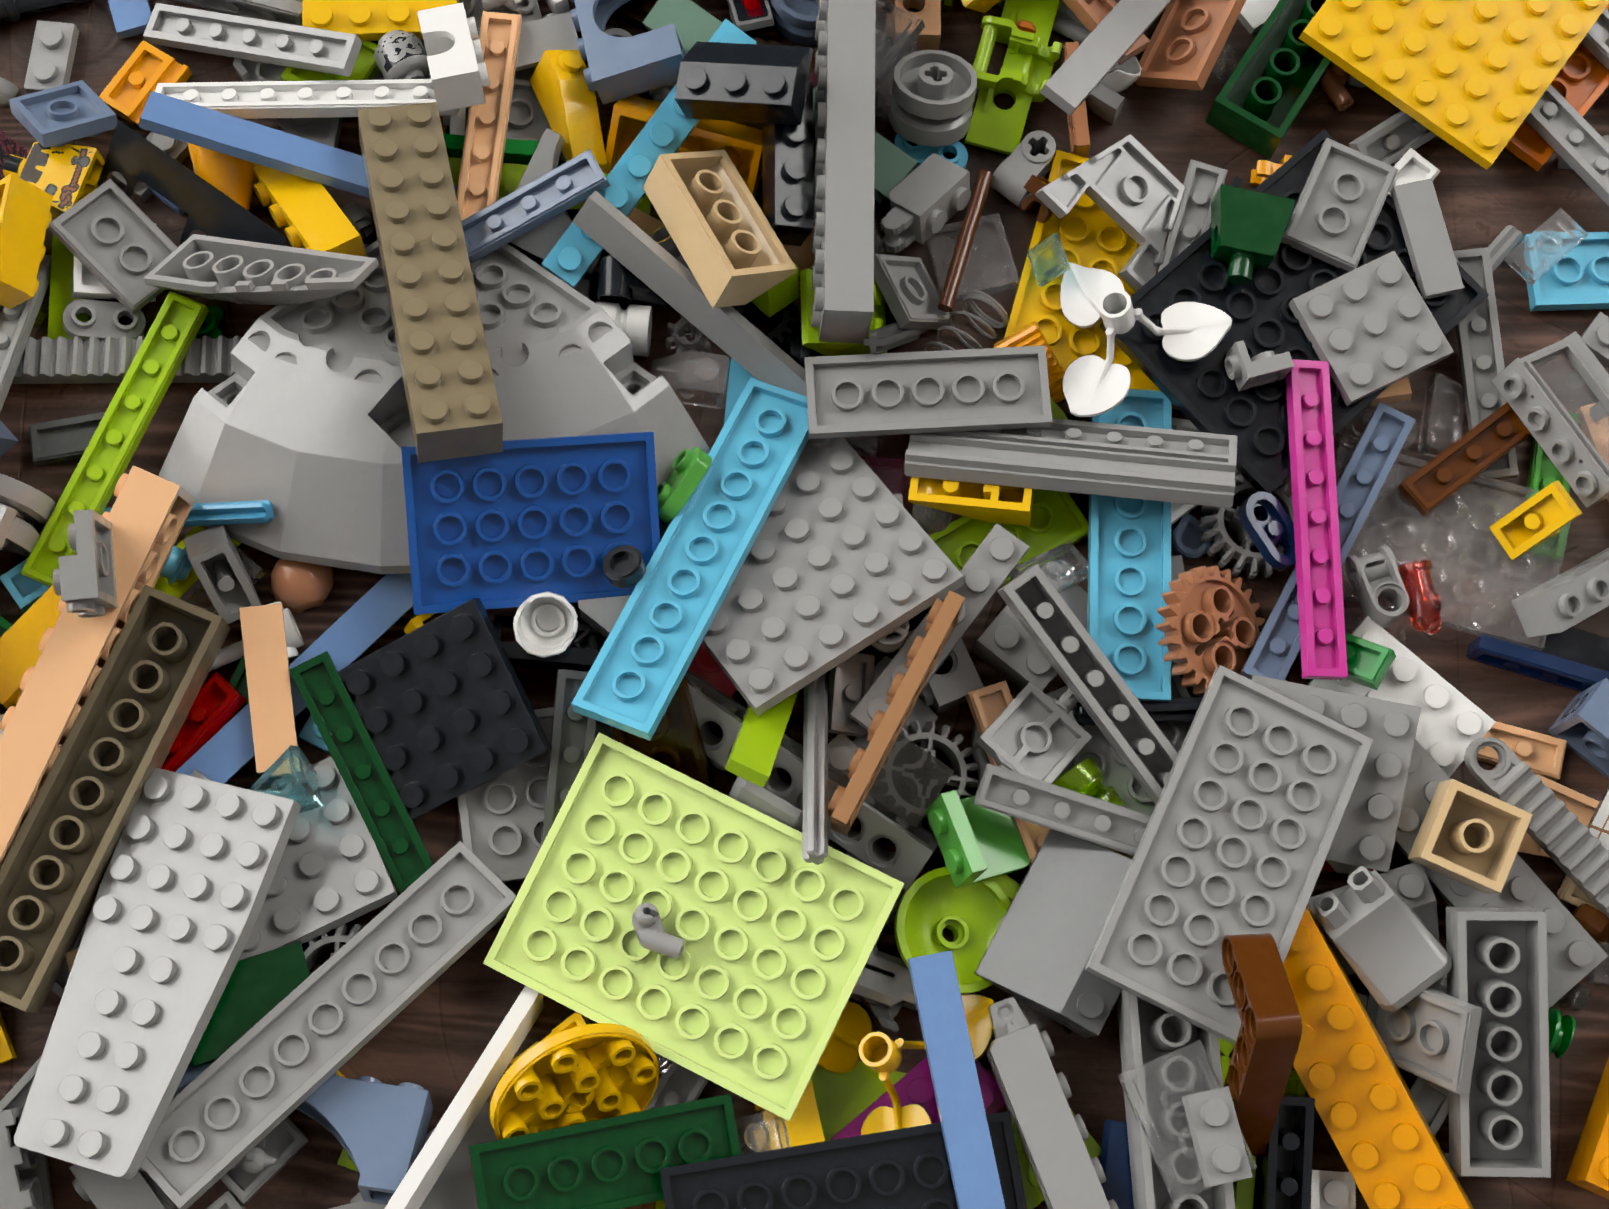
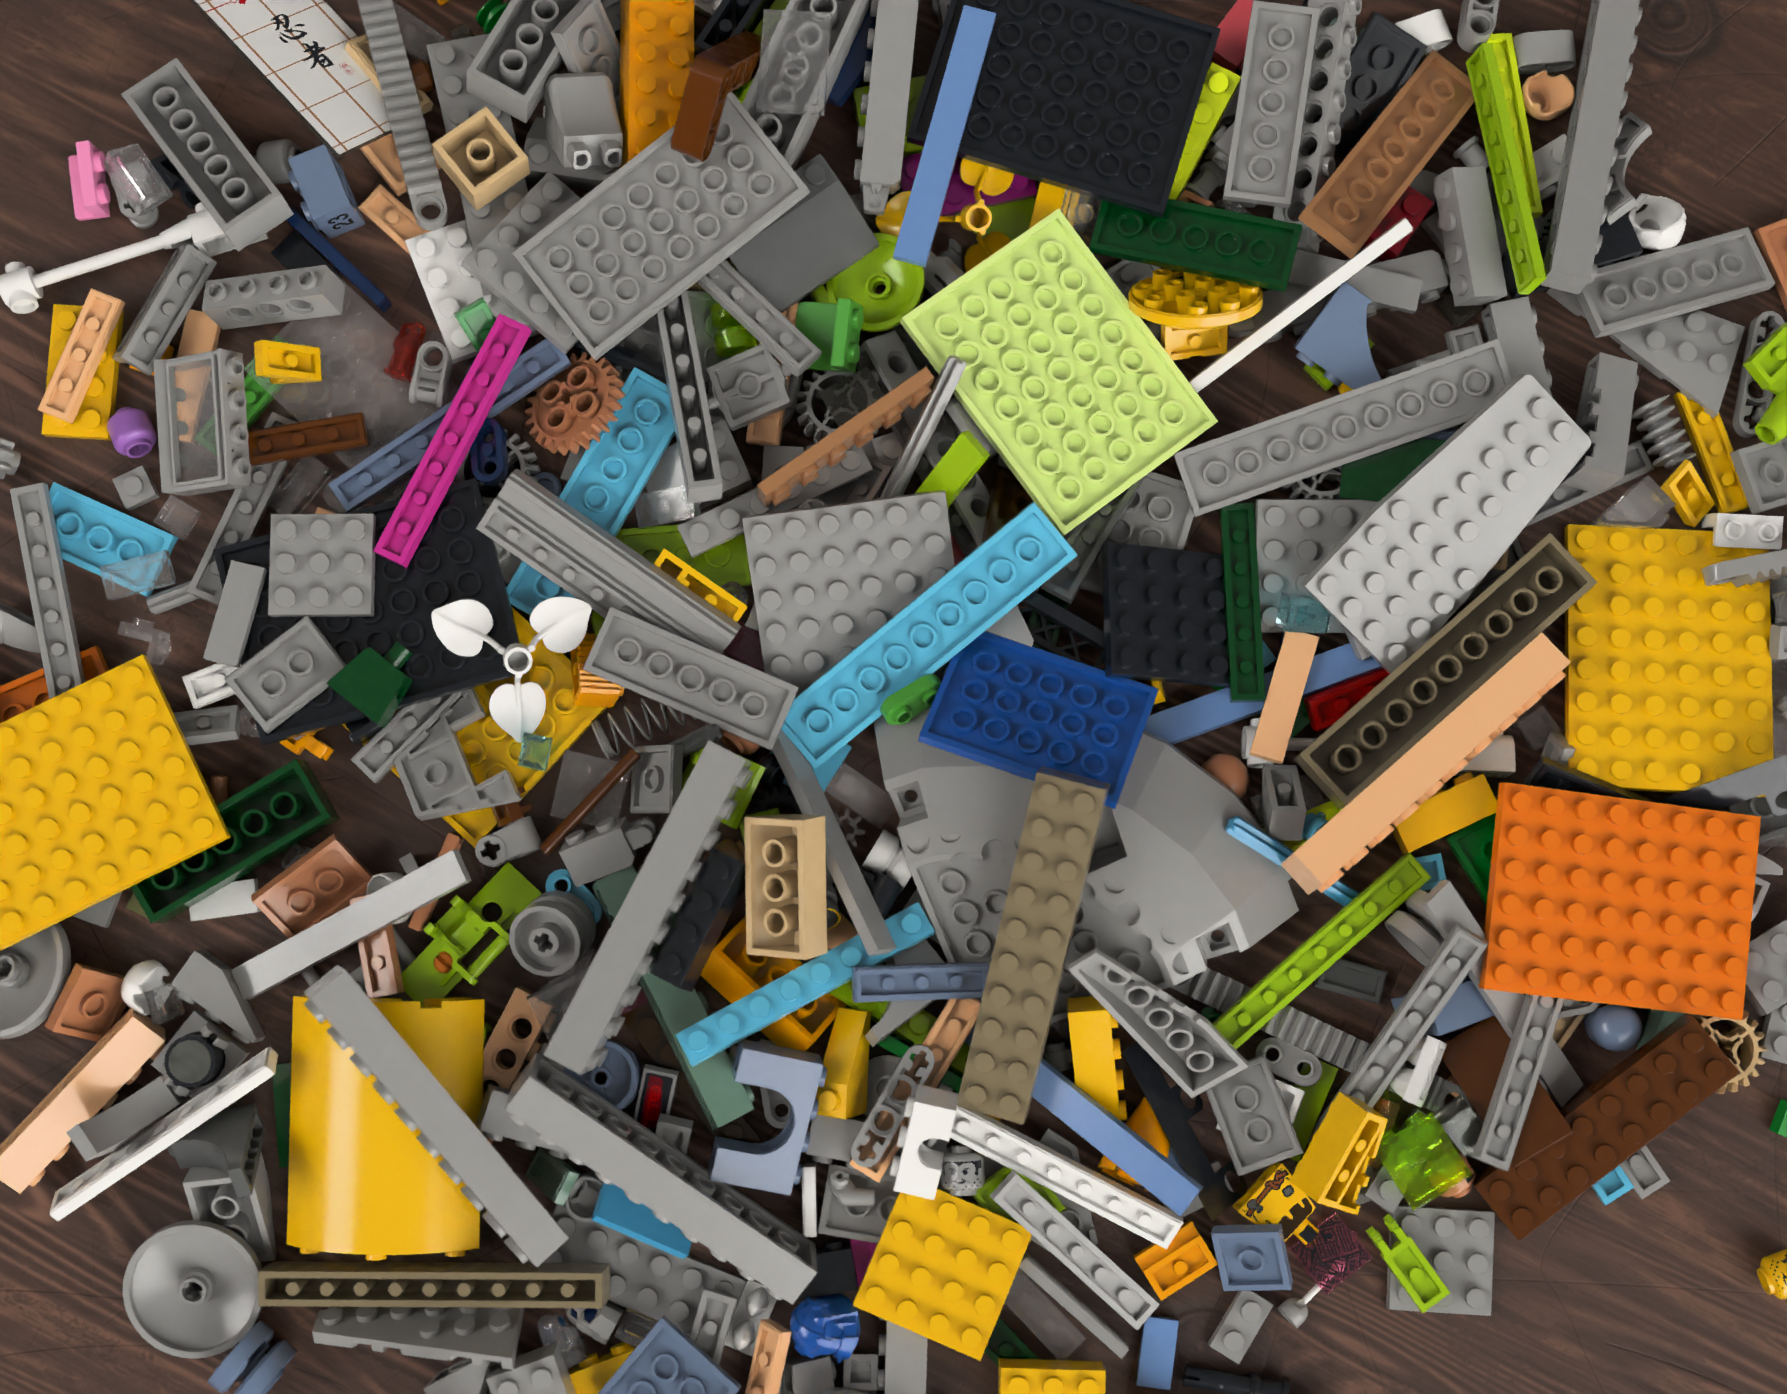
camera: 155 degrees left, 10 degrees up
(89, 577) = (1391, 800): light grey plate -> none
(506, 82) = (889, 1103): none -> light grey beam
(545, 624) = (1066, 634): white hair -> none
(624, 566) = (987, 649): black tile -> none
(652, 933) = (1093, 373): light grey arm -> none
(744, 82) = (706, 992): black slope -> none
(1216, 1136) = (781, 38): light grey plate -> none
(1260, 370) = (426, 567): light grey bracket -> none
(1500, 200) = (143, 630): none -> clear bracket
(1543, 328) = (177, 517): none -> clear tile

